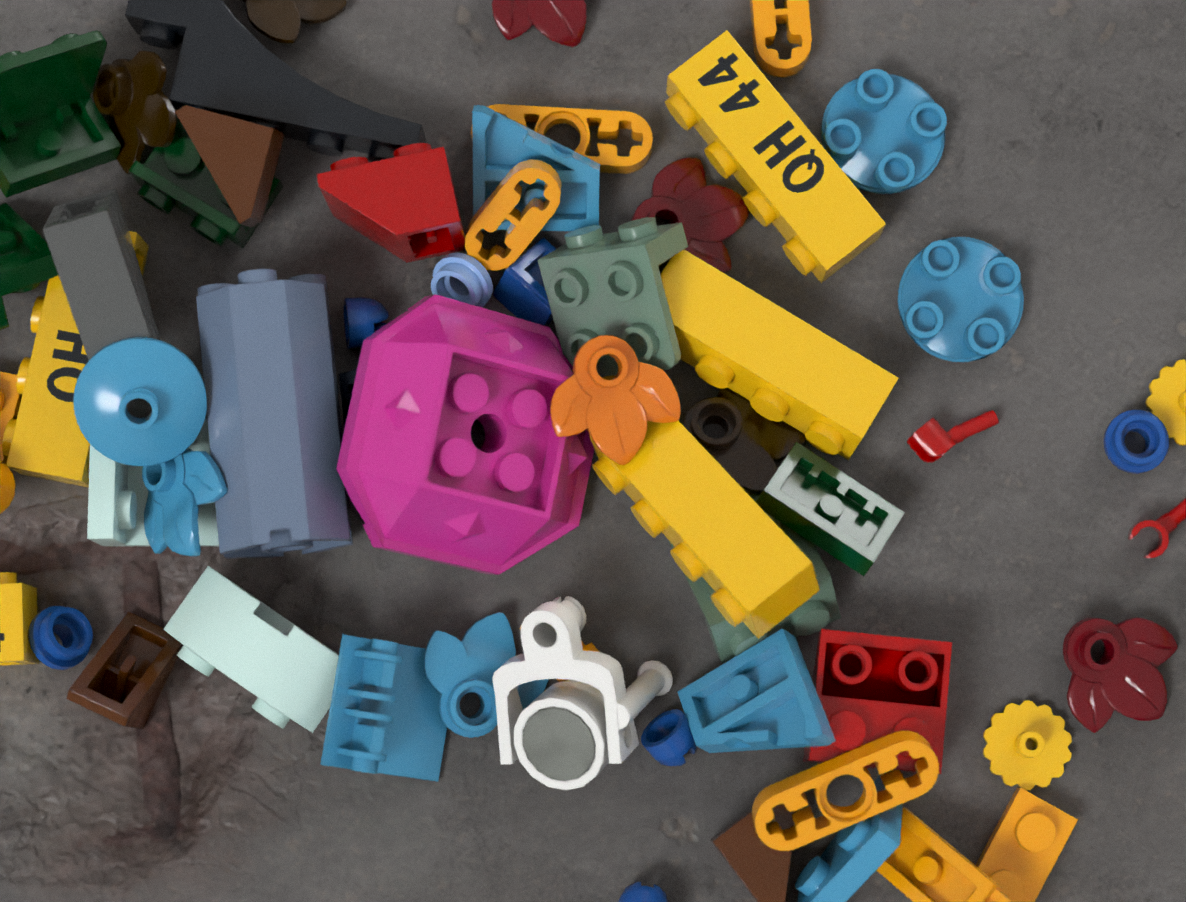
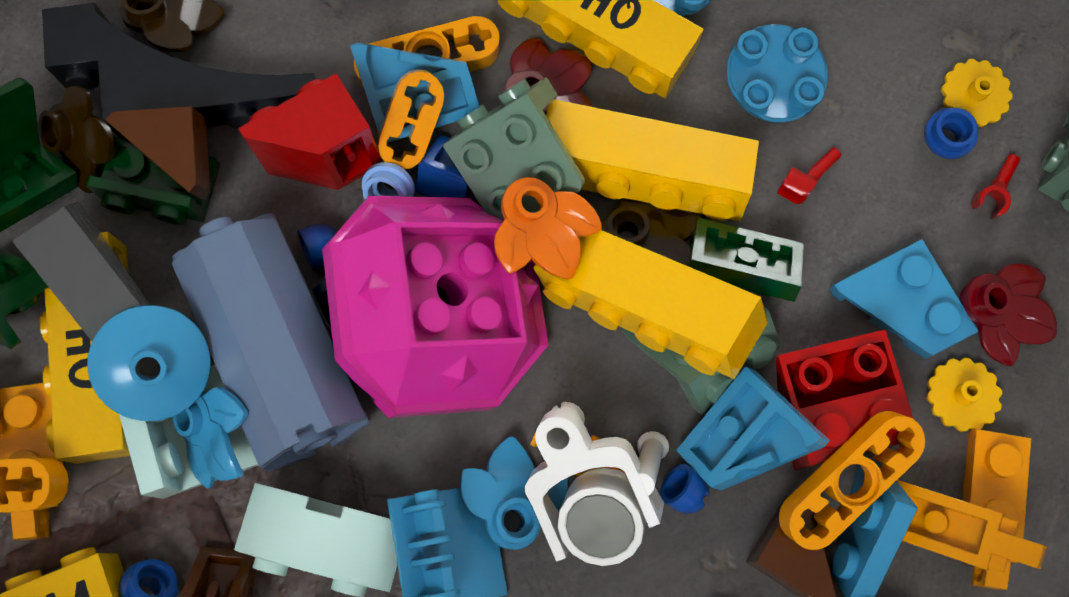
camera: 25 degrees left, 5 degrees down
(1007, 616) = (910, 300): none -> dark azure wing

